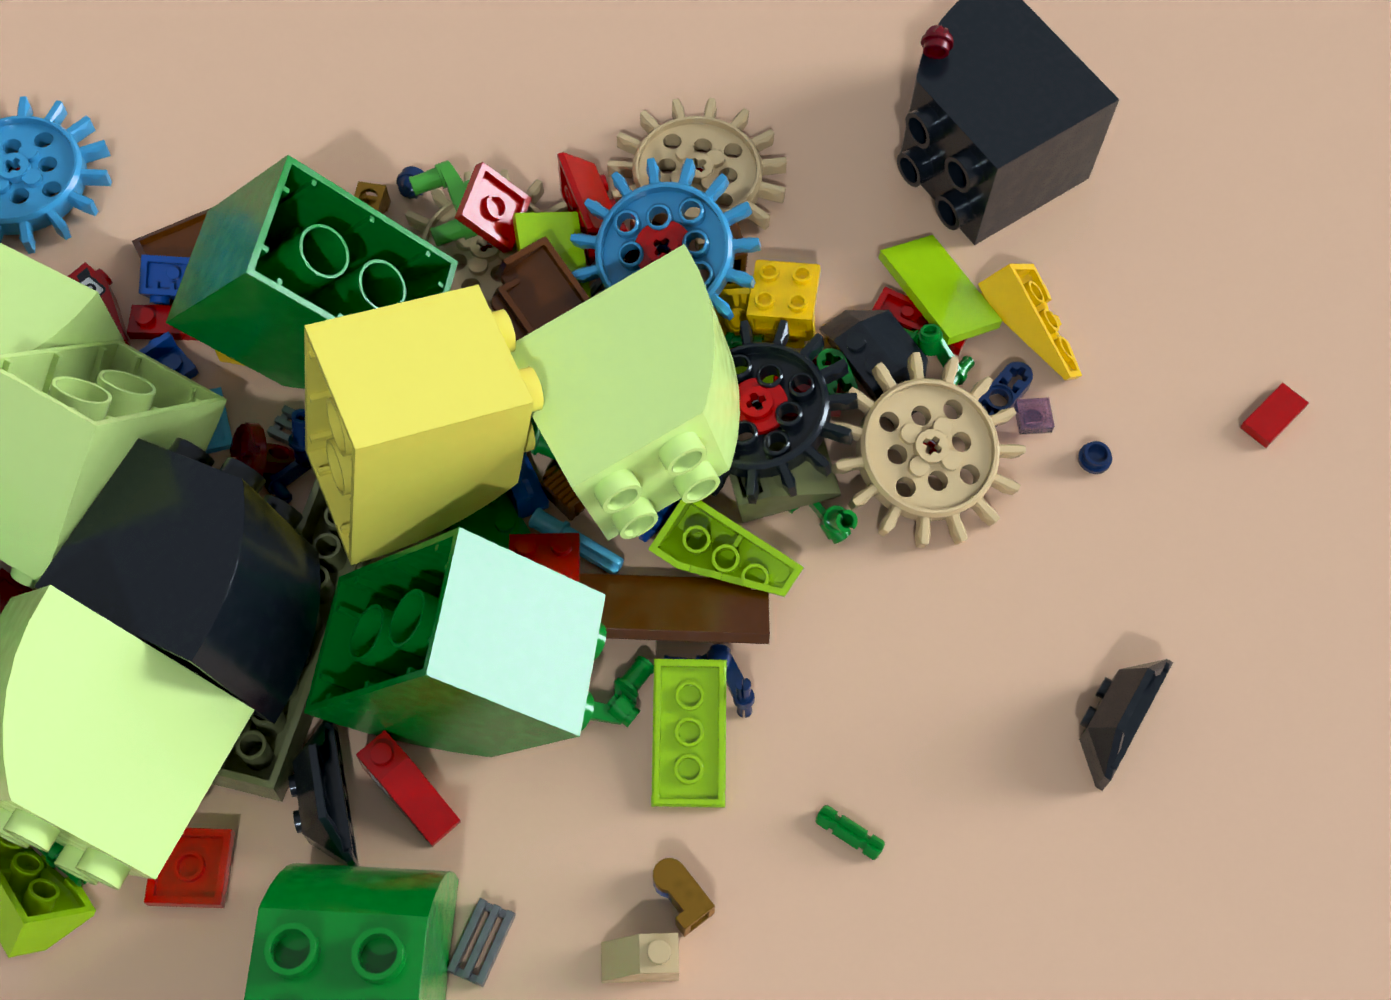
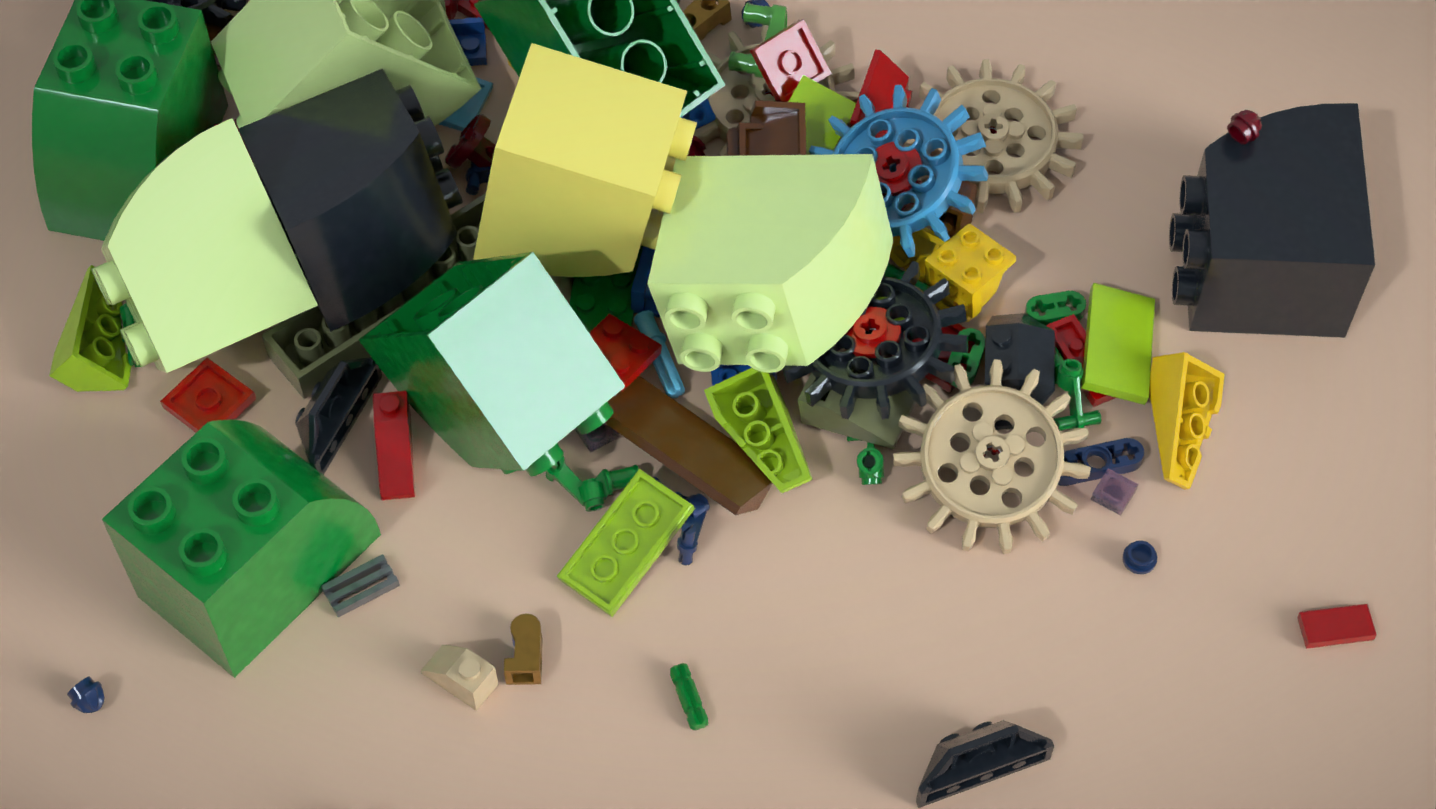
camera: 40 degrees right, 5 degrees down
(858, 287) = (1055, 306): none -> green beam

